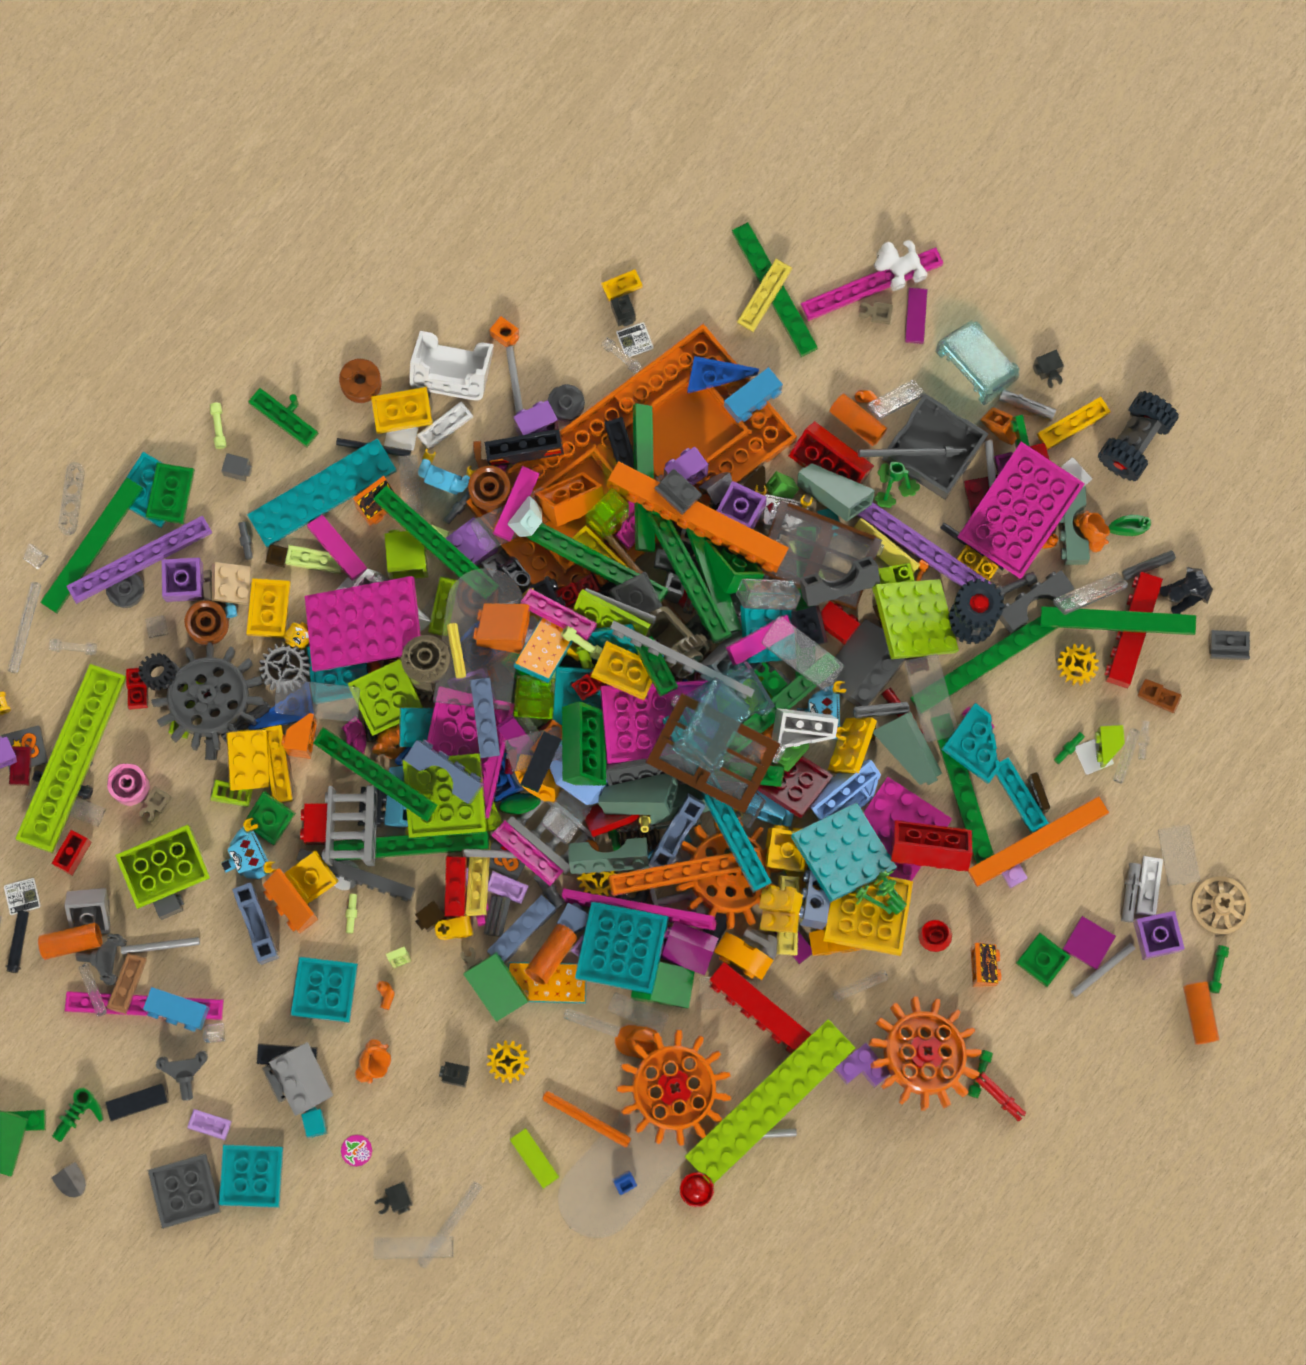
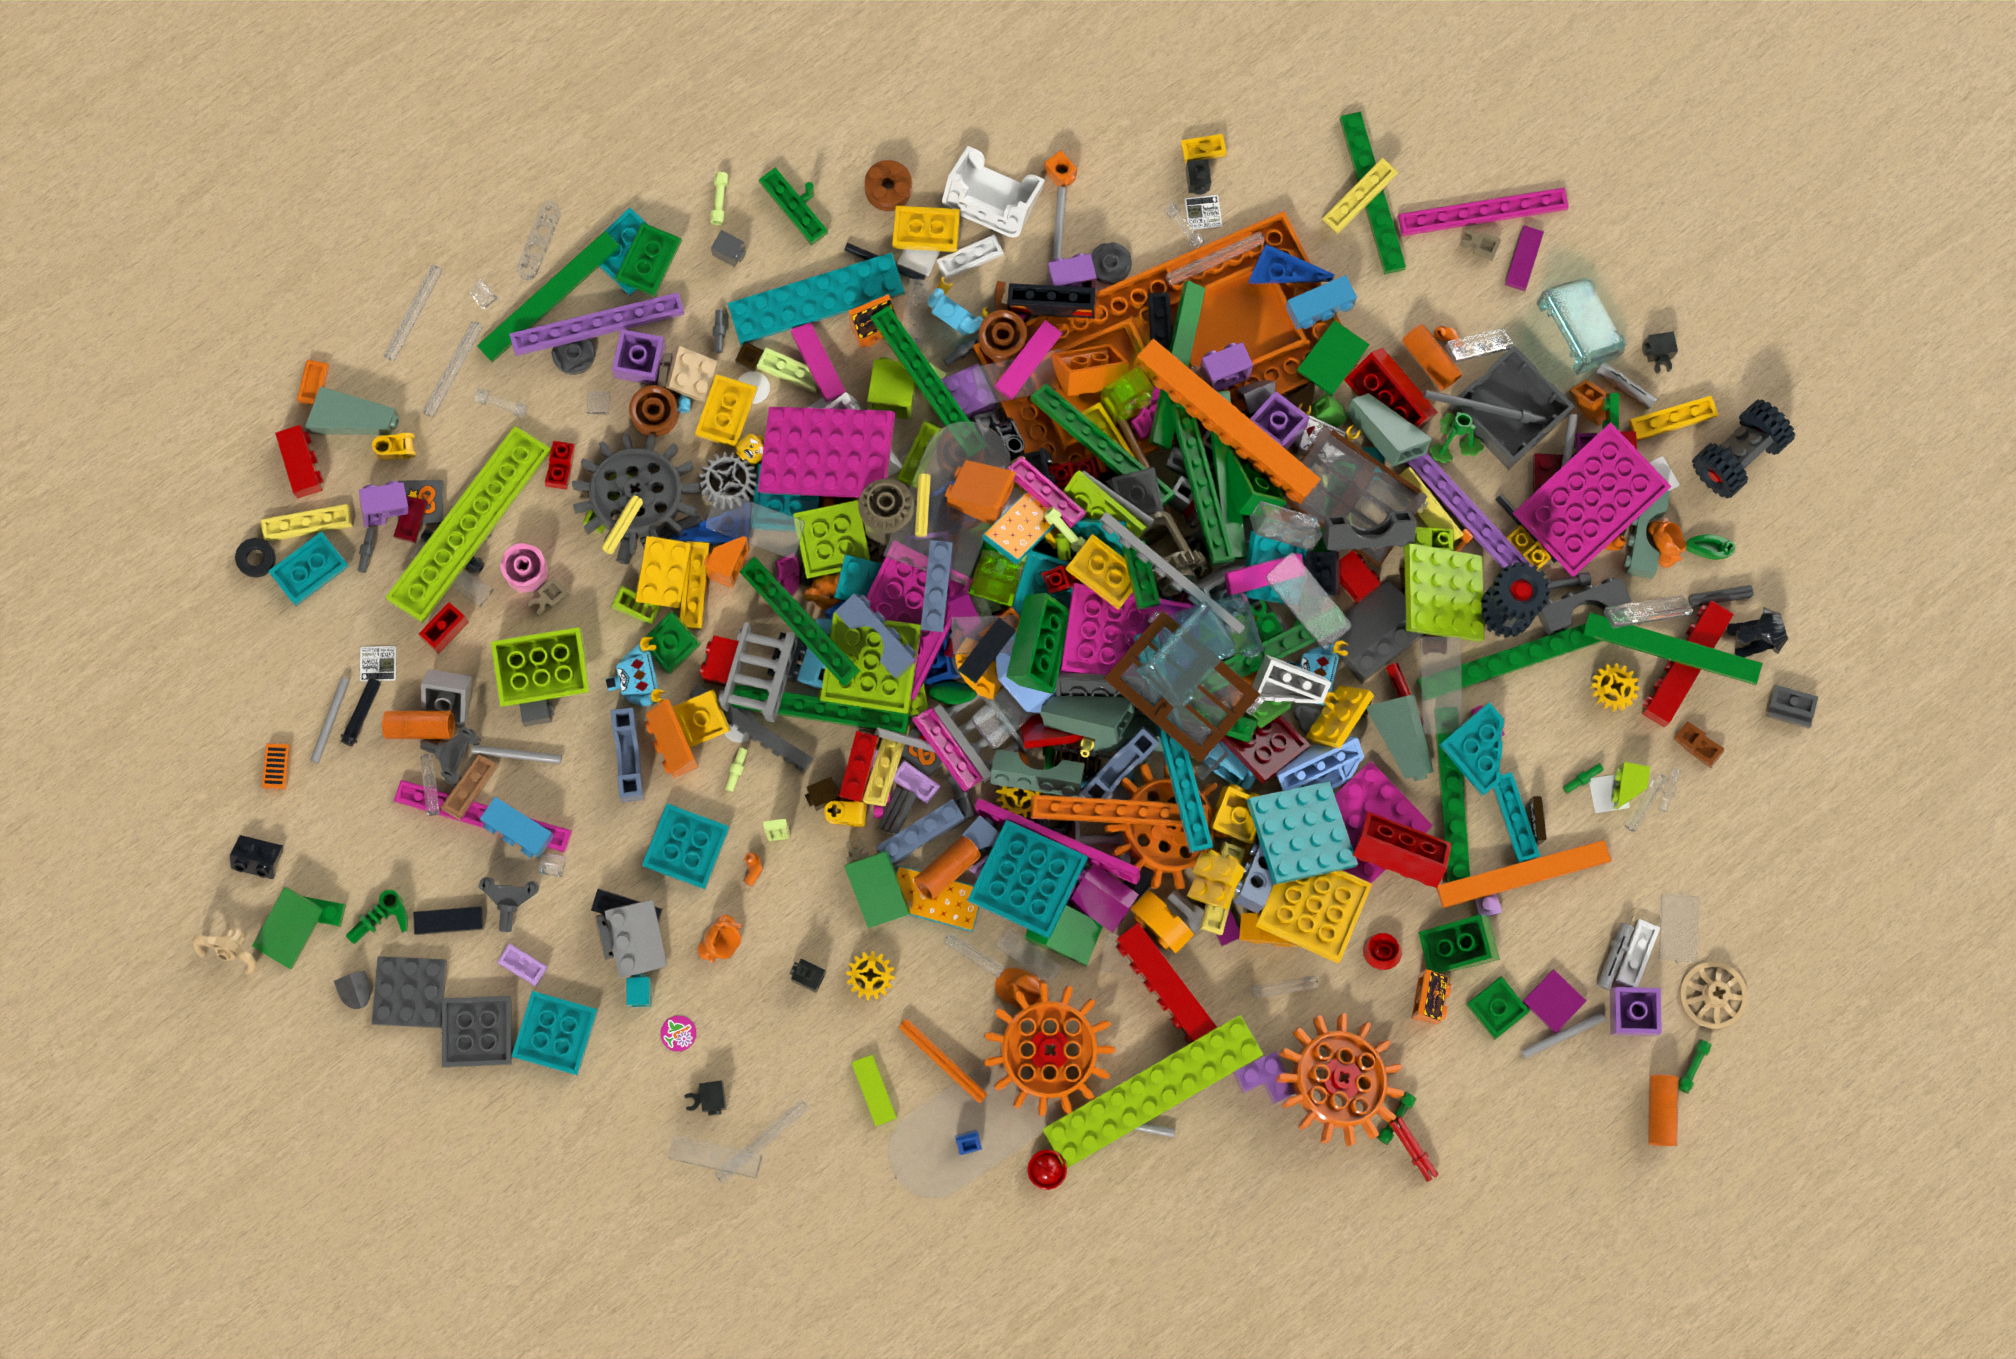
camera: 10 degrees right, 0 degrees up
(118, 1171) = (409, 992): none -> dark grey plate
(161, 680) = (586, 440): black tyre -> none
(203, 727) = (622, 524): none -> light yellow axle
(291, 575) = (760, 381): none -> white sticker
(526, 518) = (1036, 378): light aqua slope -> none
(654, 378) = (1215, 258): none -> clear axle
(678, 491) = (1211, 387): dark grey plate -> none
(774, 440) = (1333, 358): none -> green tile
(824, 751) = (1306, 716): none -> dark grey tile
(881, 710) = (1381, 684): dark grey axle -> none
(888, 258) = (1509, 187): white animal -> none
(895, 902) = (1347, 902): plant -> none
(998, 914) = (1459, 944): none -> green slope

